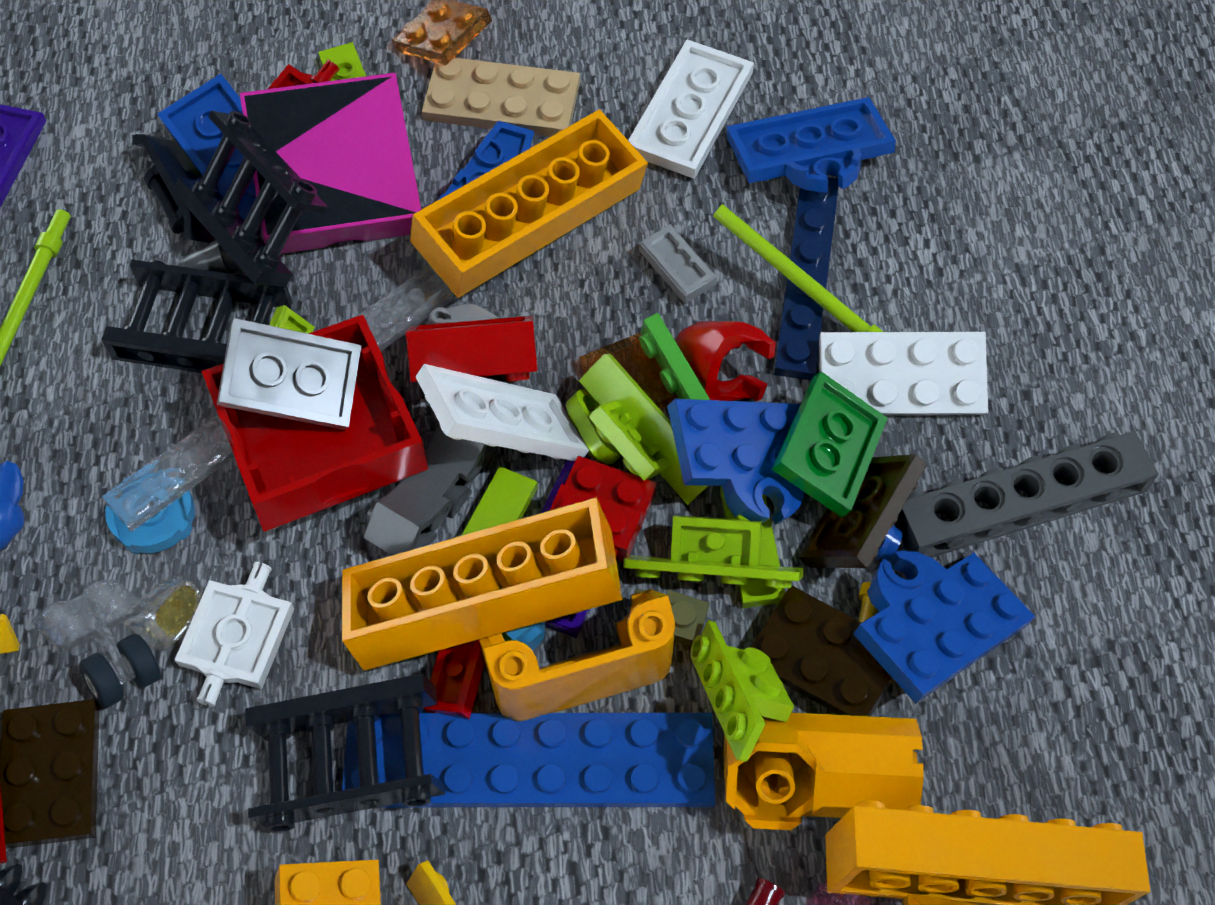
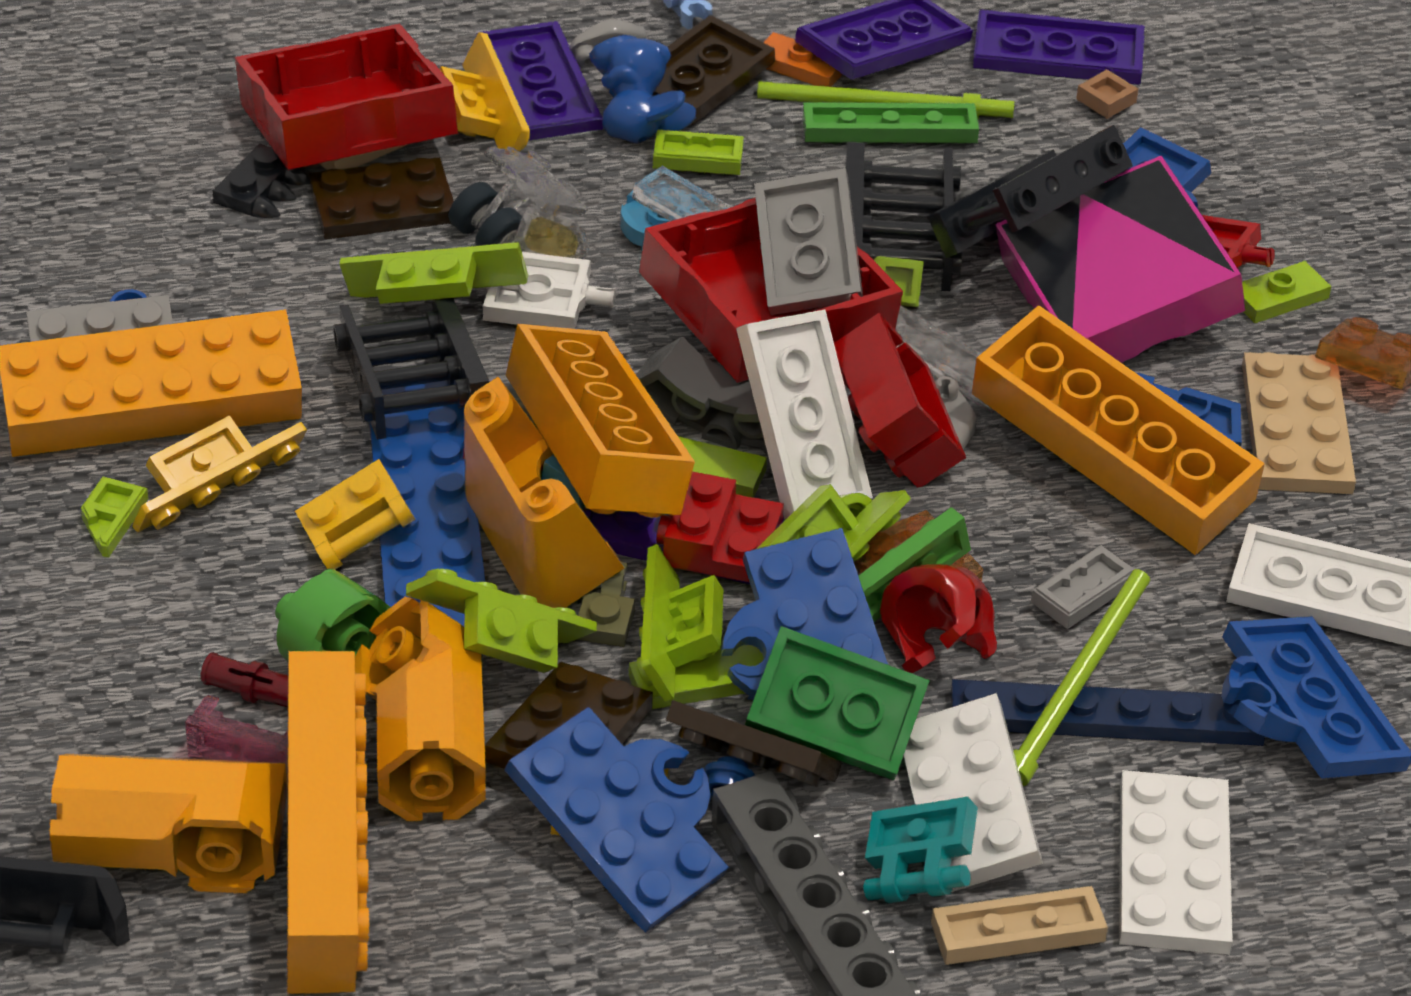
camera: 80 degrees right, 20 degrees down
(58, 310) = (890, 122): none -> bright green plate
(58, 472) = (698, 152): none -> lime plate
(64, 141) = (1107, 94): none -> medium nougat plate
(224, 726) = (434, 272): none -> lime bracket
(530, 824) = (354, 514): none -> yellow plate
(715, 844) = (327, 615): none -> bright green brick
(957, 259) = (1175, 862): none -> white plate
(965, 406) = (915, 835): none -> teal plate
(1029, 364) = (1018, 925): none -> tan plate

